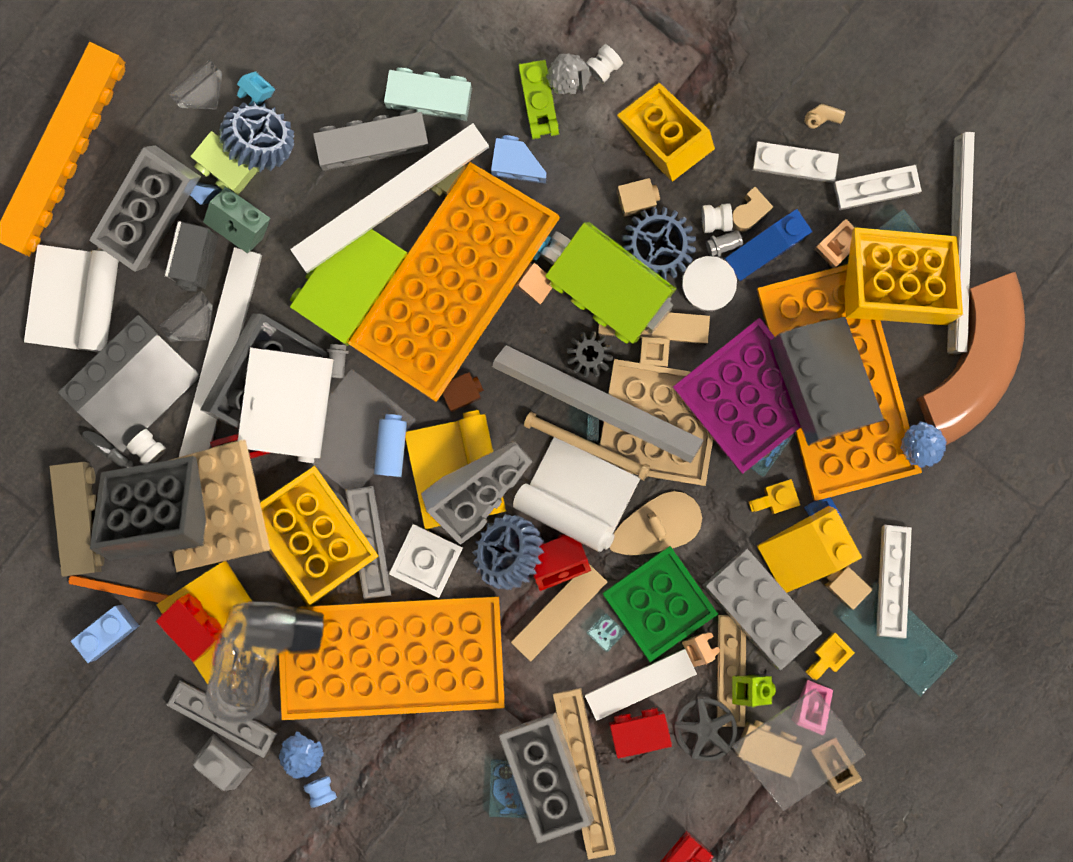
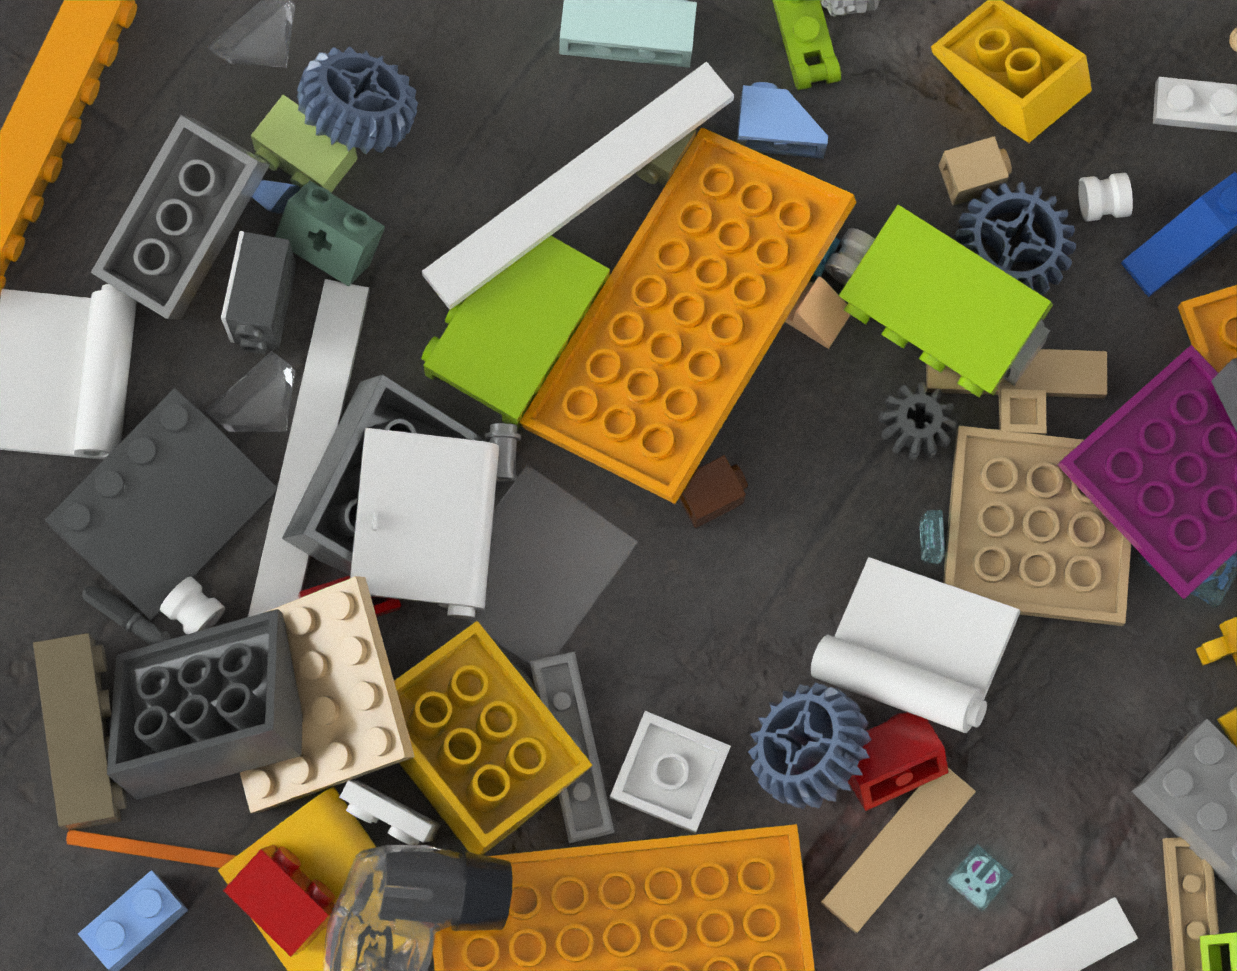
camera: 10 degrees left, 10 degrees down
(255, 87) = (349, 26): medium azure tile -> none
(263, 582) = (373, 805): none -> white plate
(371, 140) = (541, 101): light grey brick -> none
(390, 446) = (600, 584): light blue brick -> none
(445, 449) = (709, 622): yellow door -> none
(470, 494) = (743, 649): light grey wedge -> none
(588, 446) = (924, 566): tan bar -> none
(598, 403) = (940, 496): light grey tile -> none
(660, 523) = (1052, 695): tan shield -> none
(660, 603) = (1066, 823): green plate -> none
(699, 649) = (1140, 895): light nougat tile -> none
(709, 283) = (1100, 301): white tile -> none
(724, 243) = (1111, 239): light grey pin -> none
(749, 214) = (1160, 184): tan leg -> none

